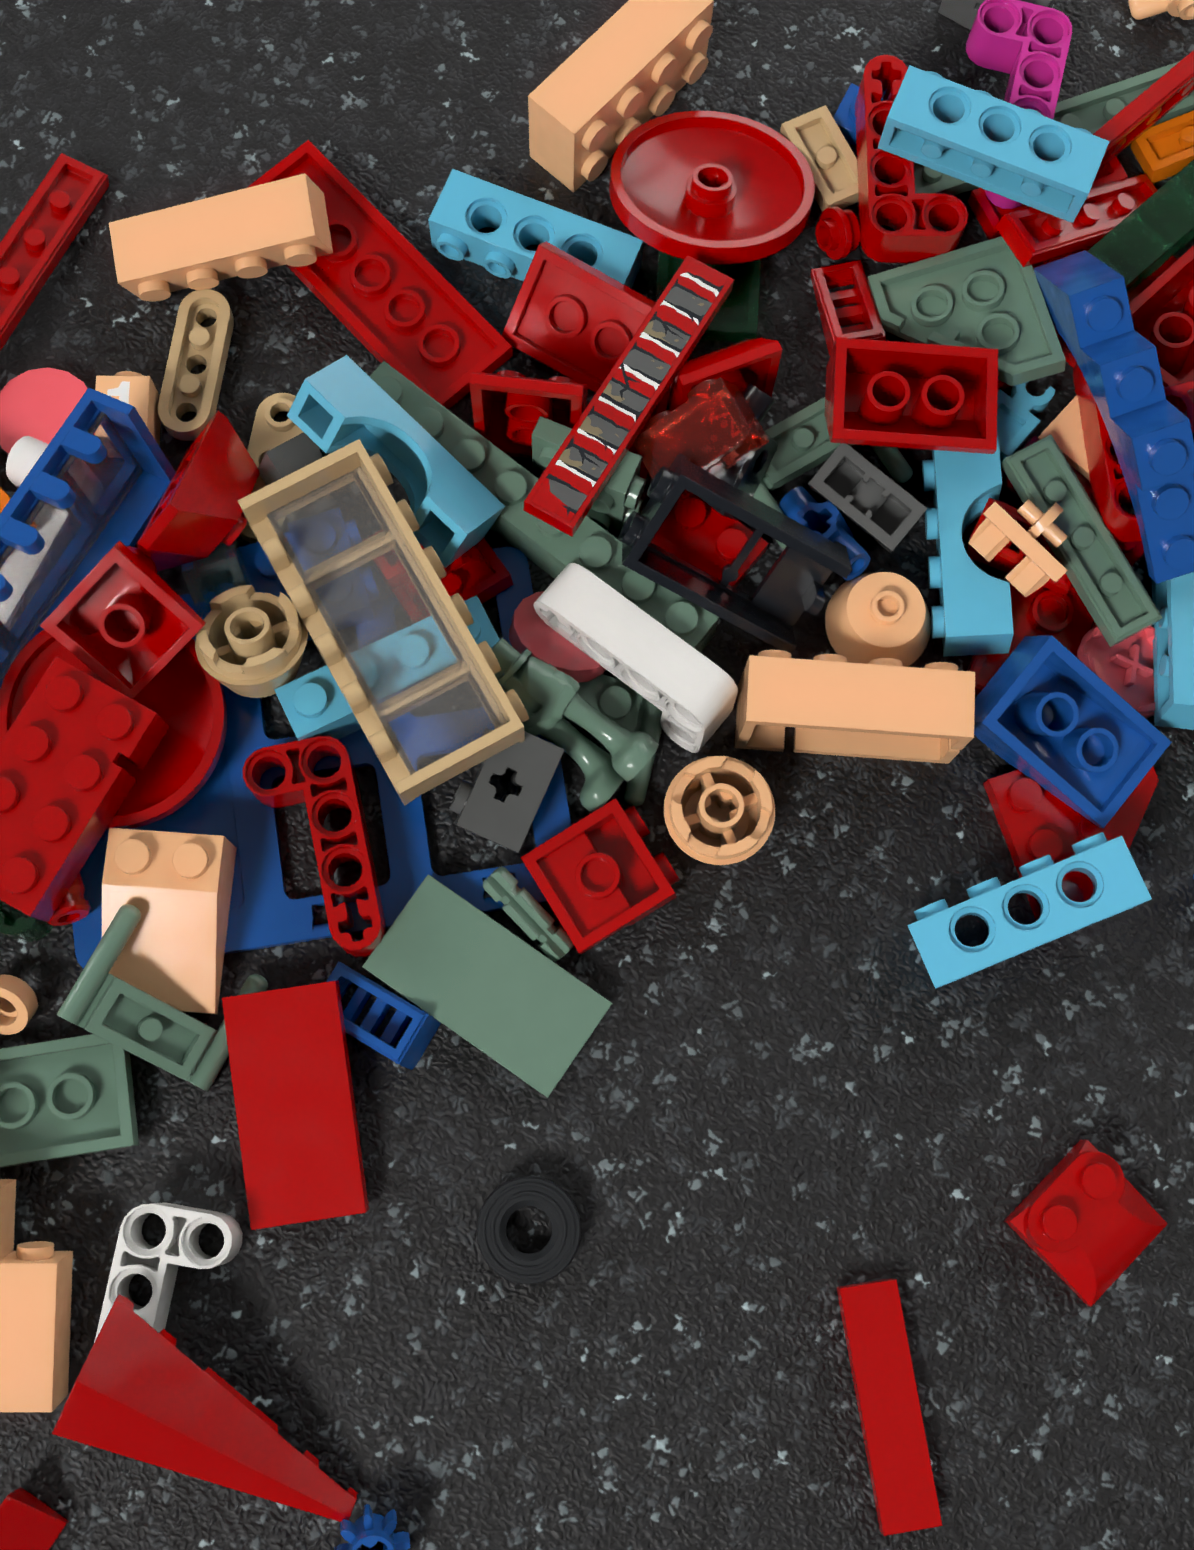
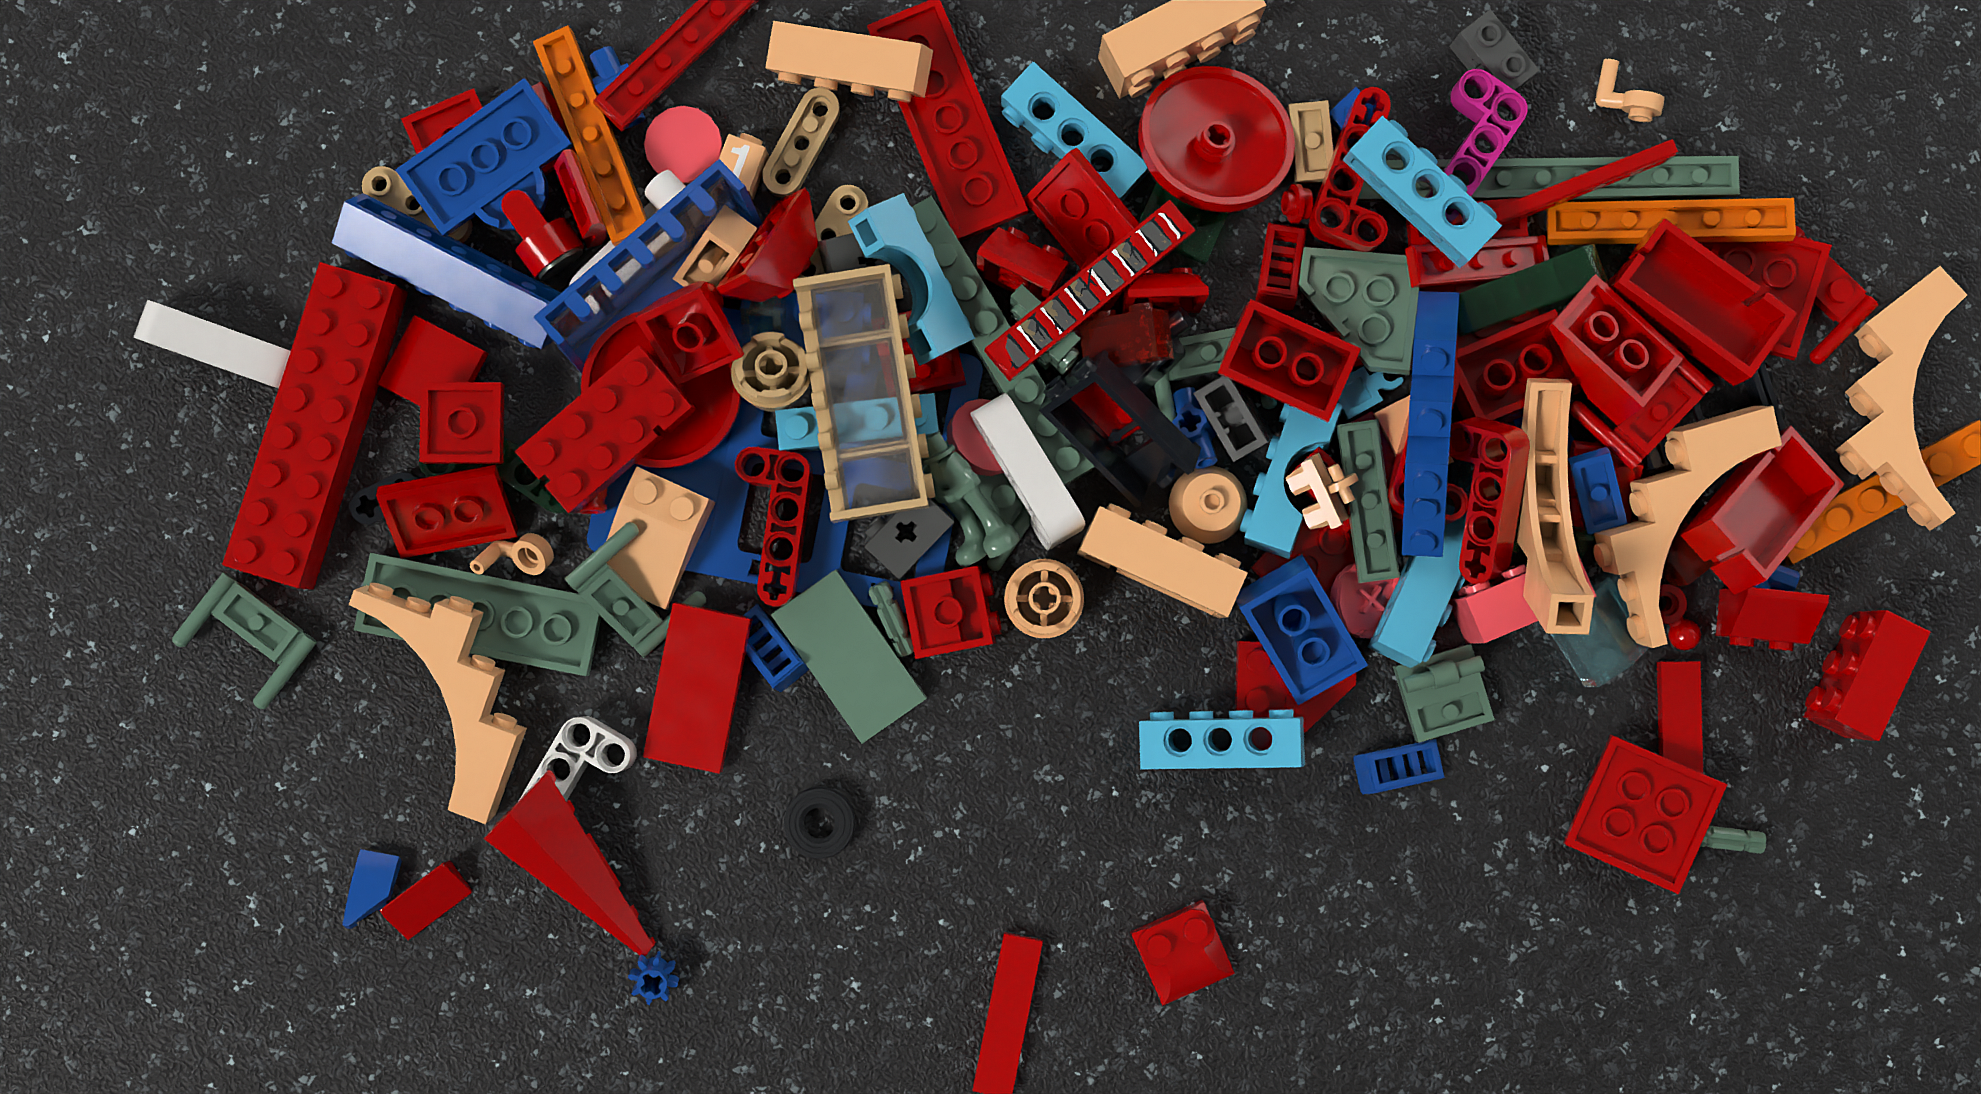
camera: 25 degrees right, 10 degrees up
(124, 507) = (716, 249): none -> light nougat slope

